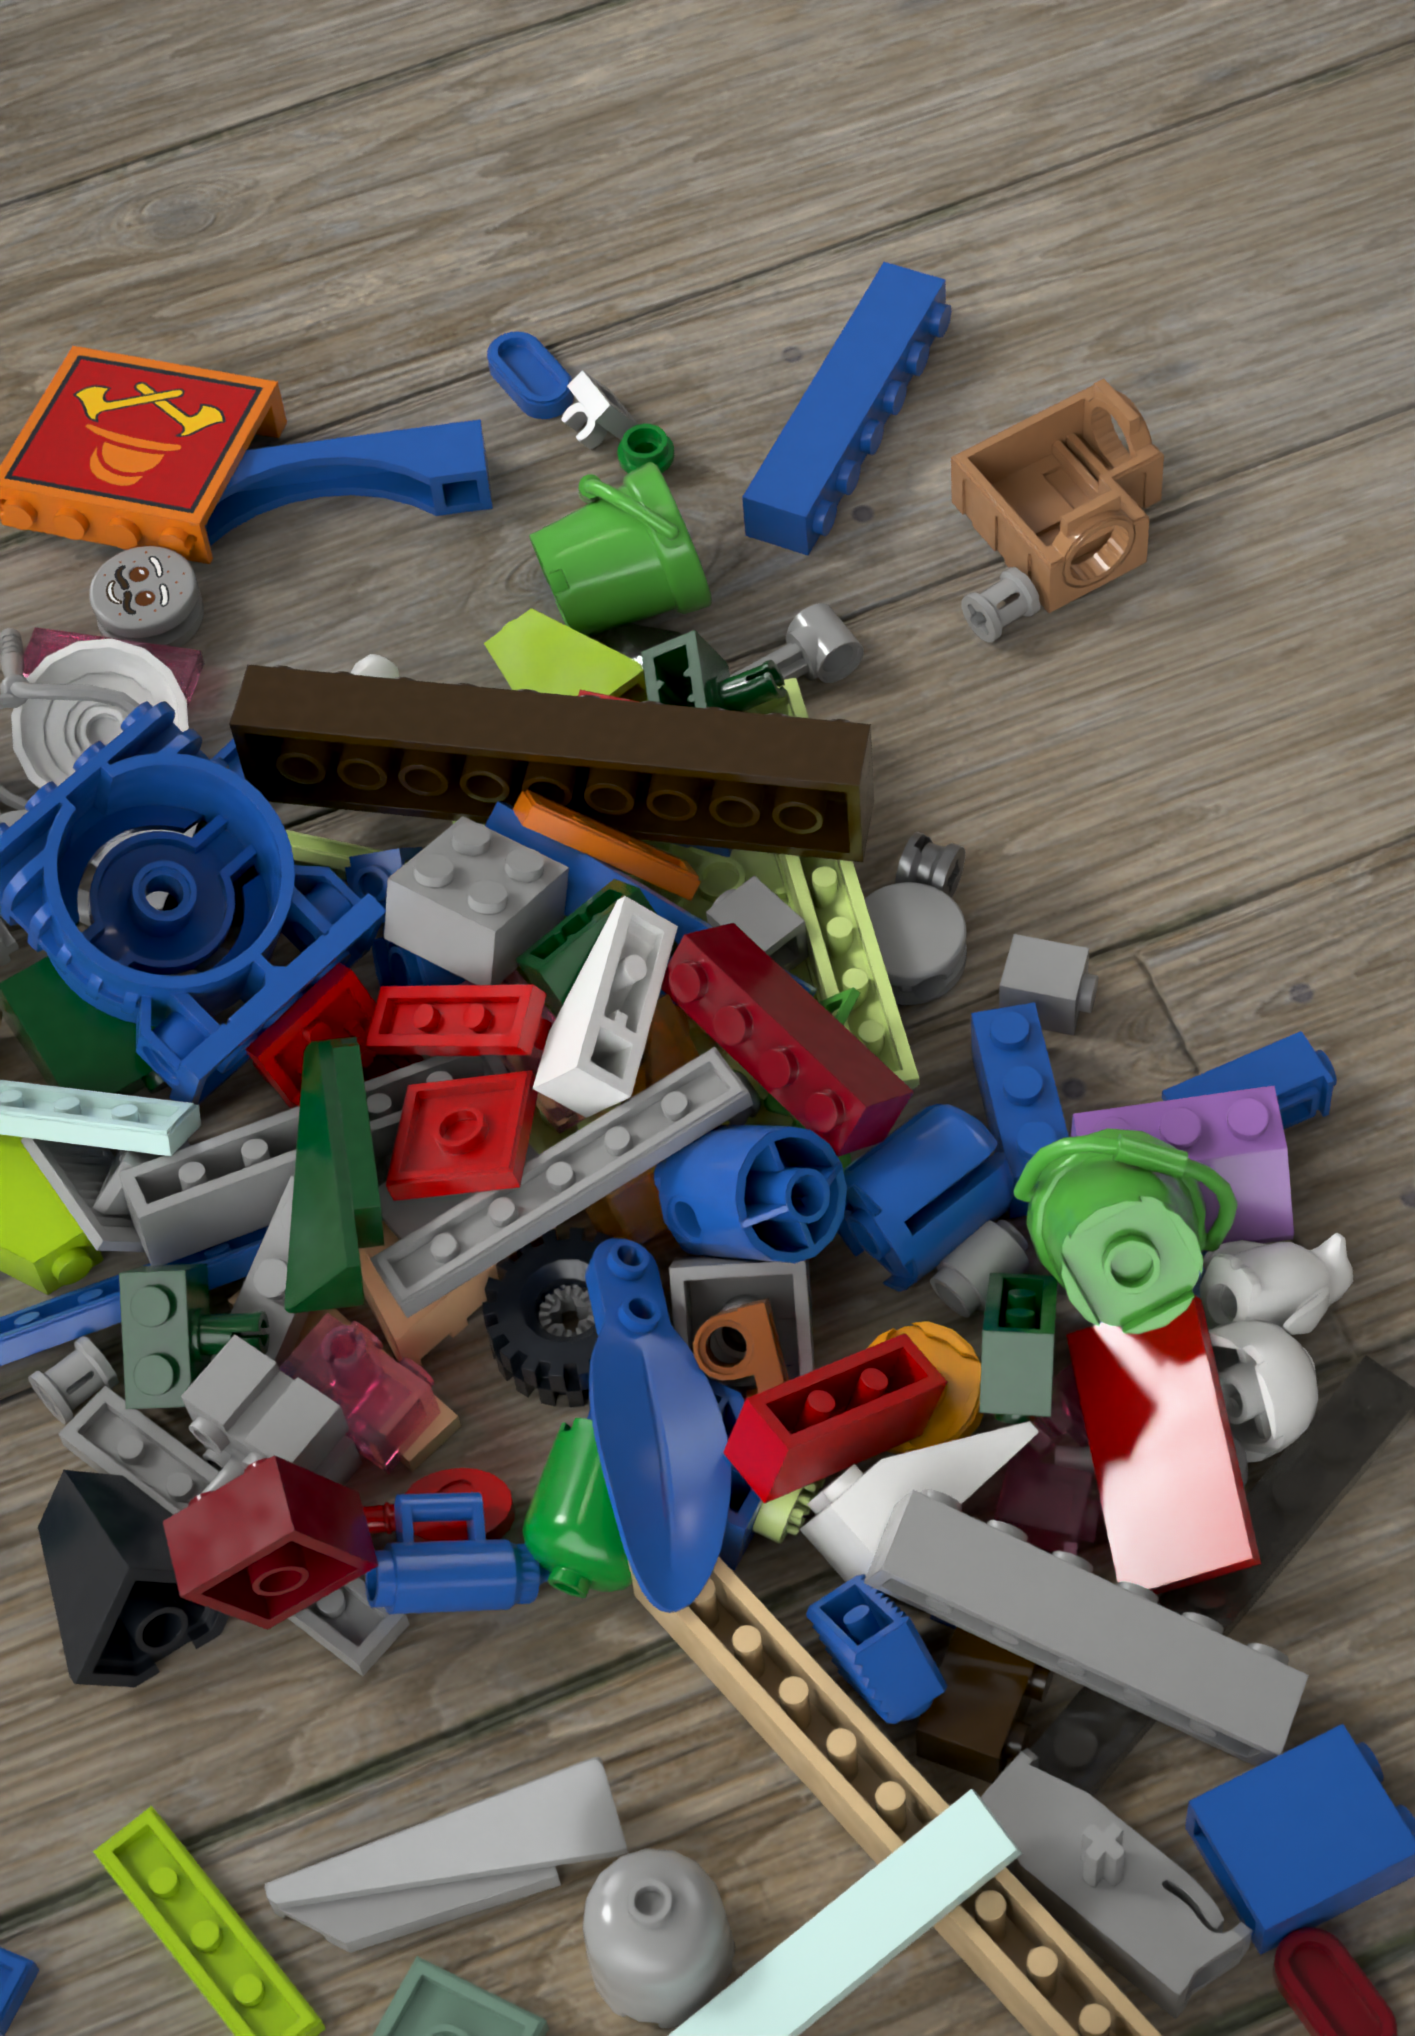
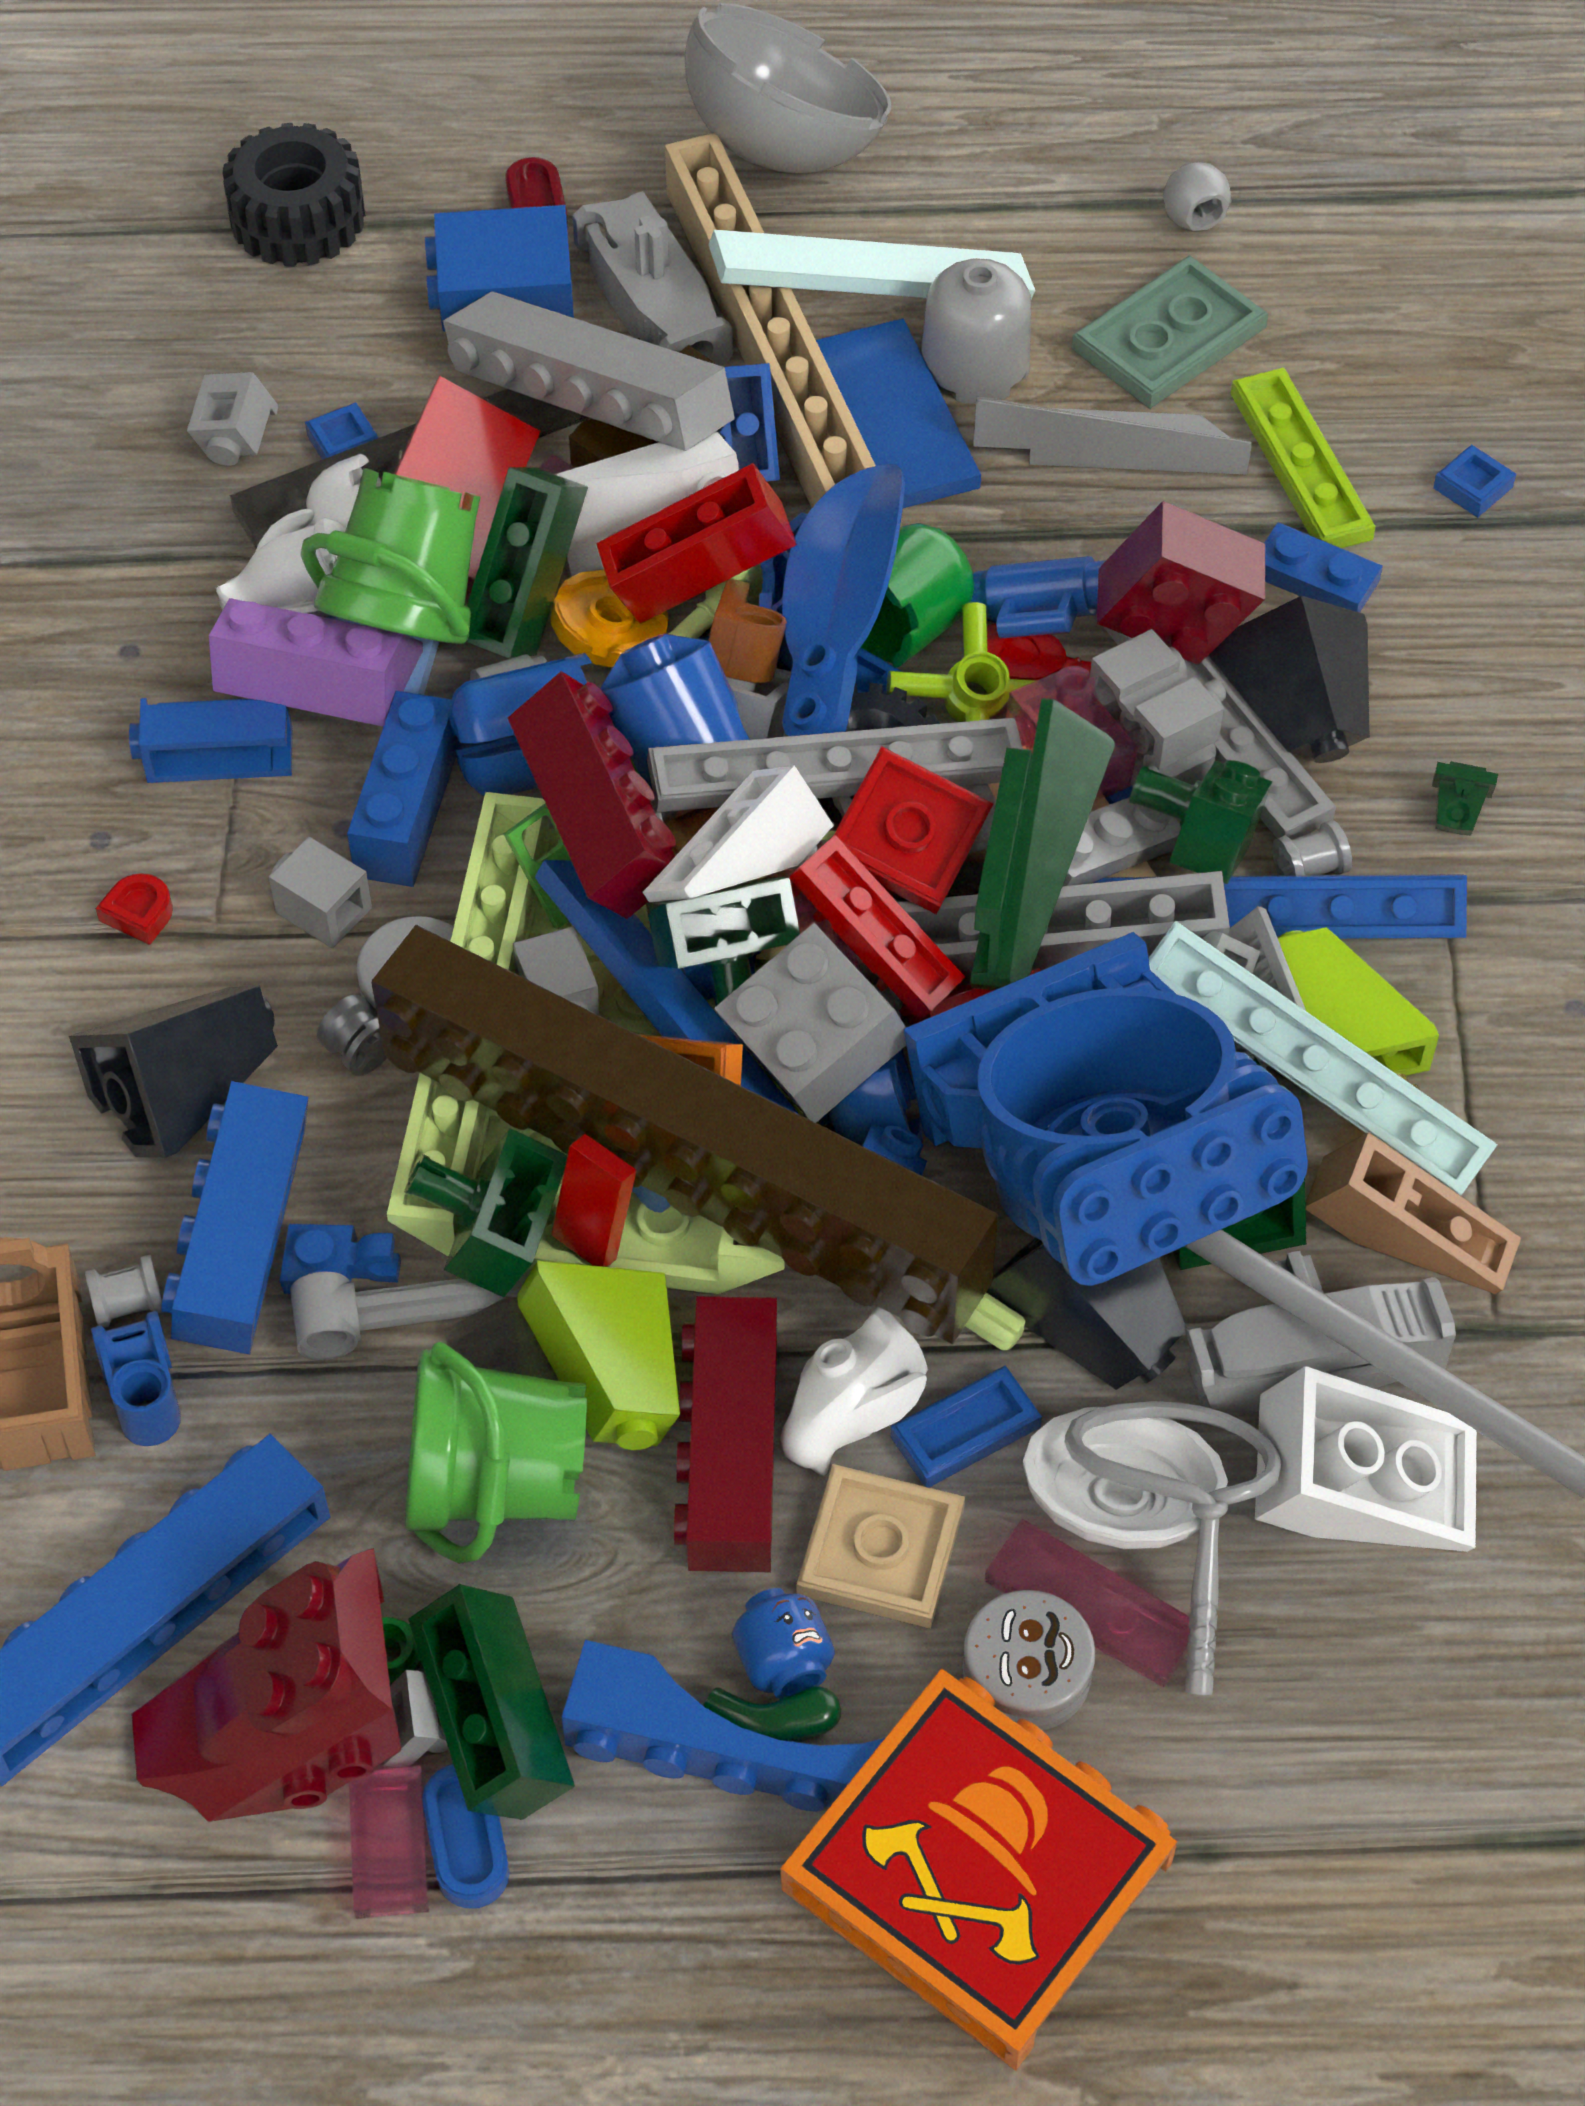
camera: 165 degrees left, 0 degrees up
(152, 1770) = (1318, 569): none -> blue plate
(296, 635) = (881, 1546): none -> tan tile
(329, 502) = (788, 1719): none -> dark green arm
(339, 540) = (783, 1642): none -> blue head
(427, 629) = (731, 1435): none -> dark red brick
(484, 1436) = (976, 667): none -> lime bar
(540, 420) = (490, 1703): none -> dark green brick
(581, 344) = (388, 1843): none -> clear pink tile
(694, 361) = (281, 1704): none -> dark red slope
(731, 1805) = (901, 410): none -> blue tile
(851, 693) = (336, 1249): none -> blue plate
(937, 677) = (237, 1219): none -> blue brick
(949, 547) = (137, 1370): none -> blue piece
(1074, 774) = (174, 1064): none -> black slope
(1215, 931) = (137, 907): none -> red tile
(1354, 1536) = (339, 431): none -> blue tile

